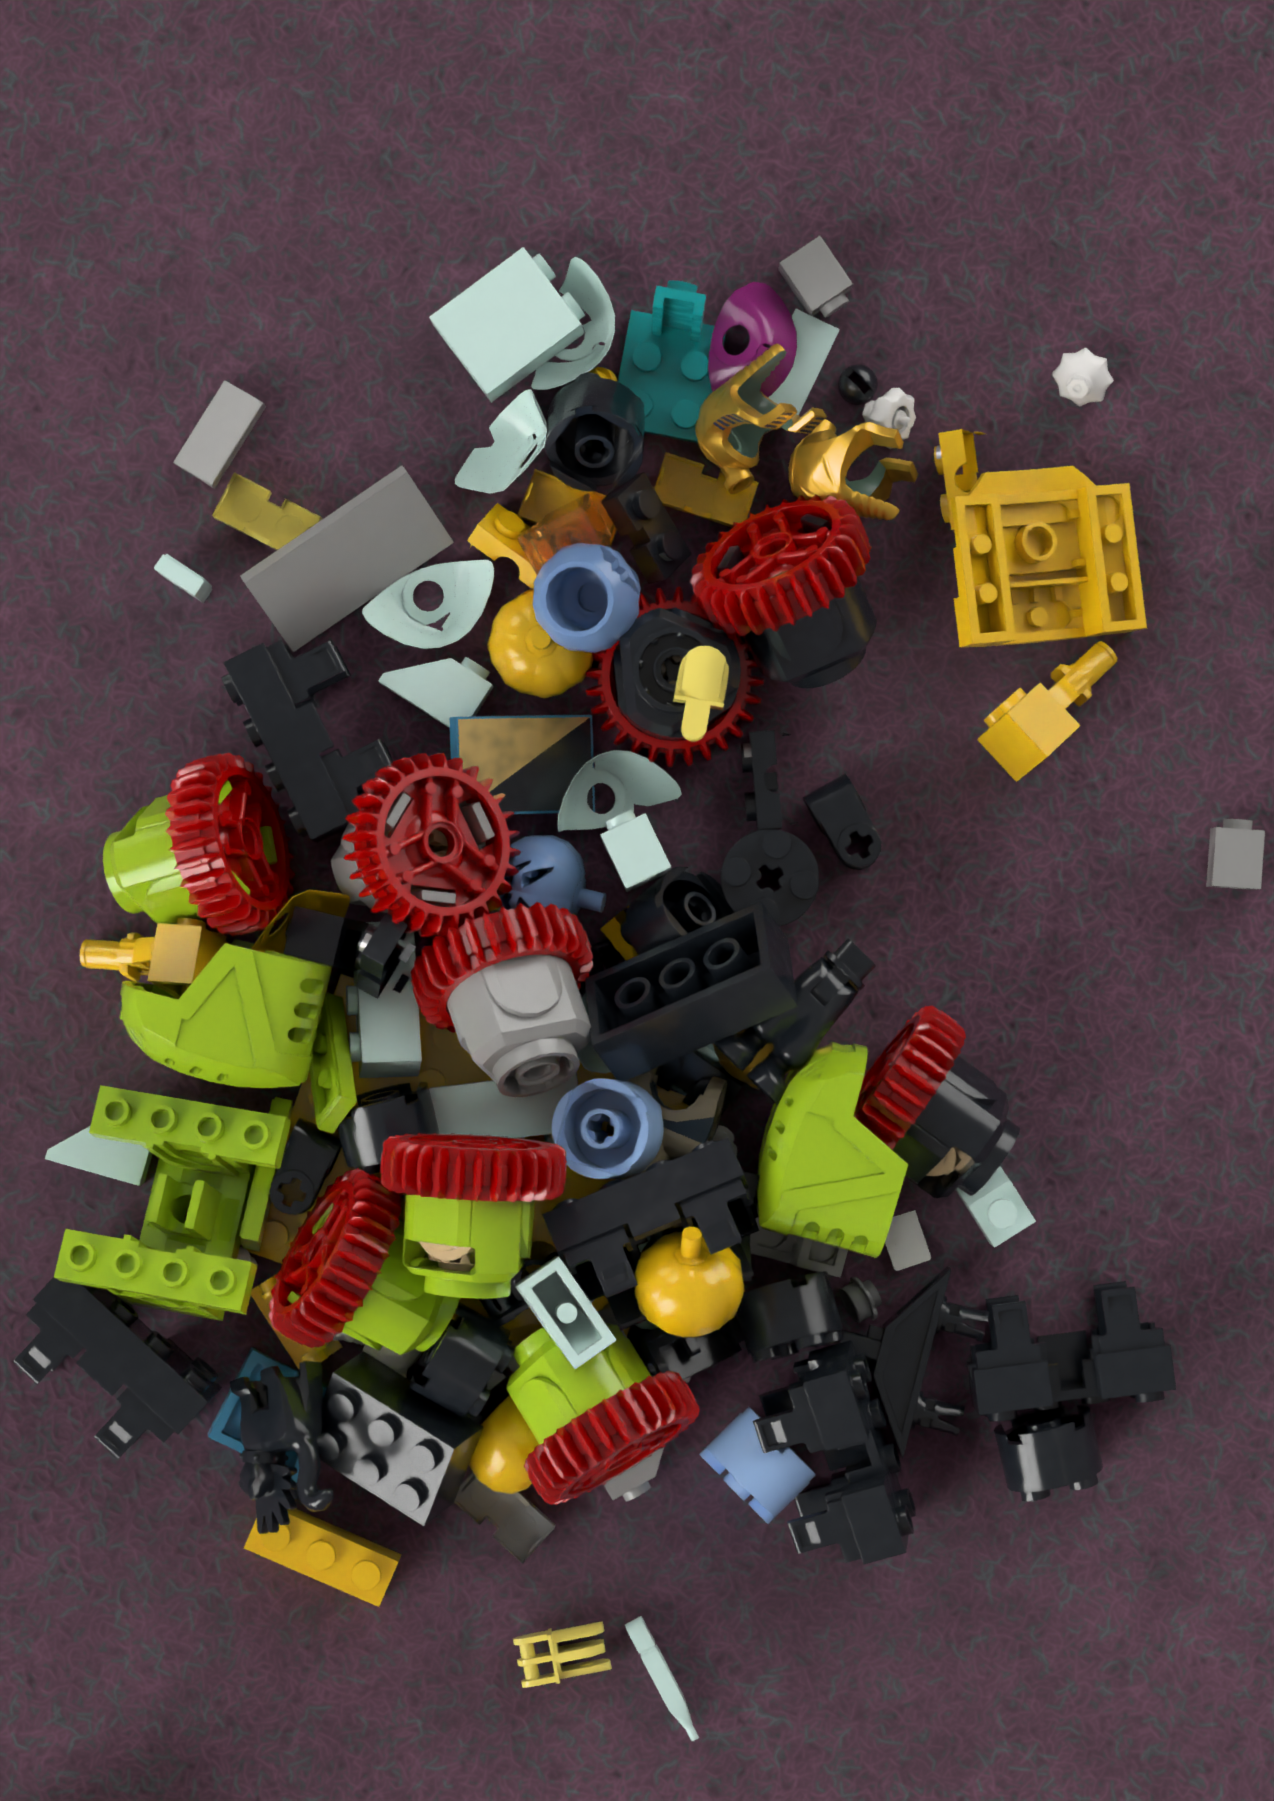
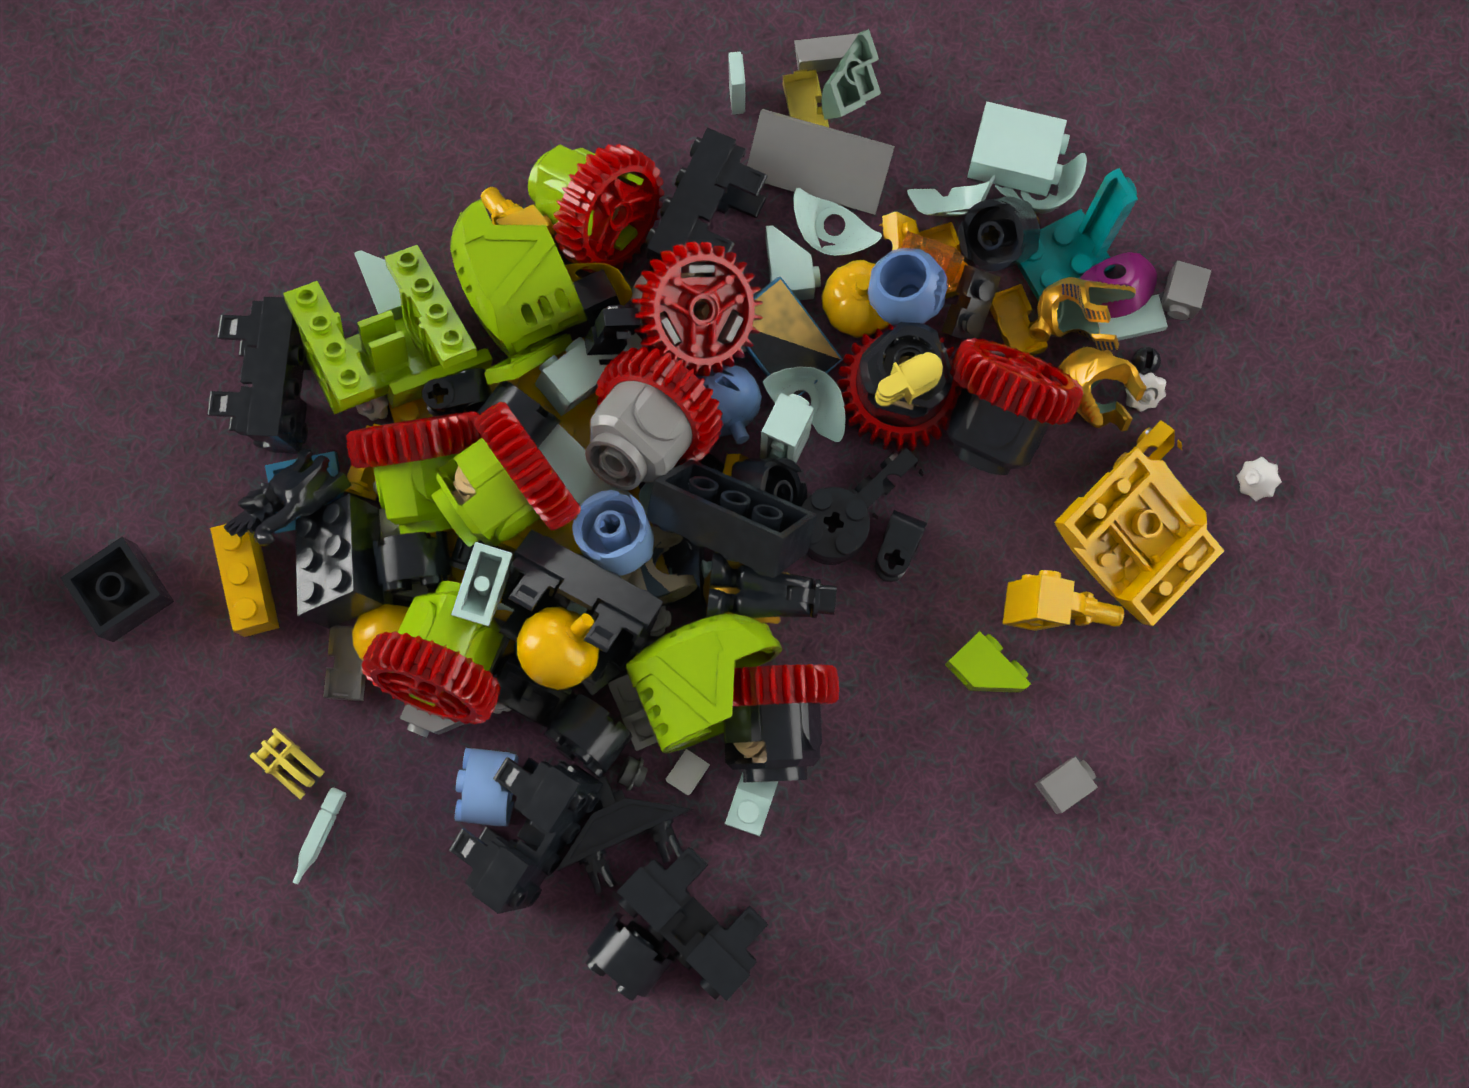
camera: 60 degrees right, 10 degrees down
(228, 1697) = (117, 589): none -> black brick
(286, 447) = (852, 80): none -> sand green slope
(1048, 842) = (985, 668): none -> lime slope

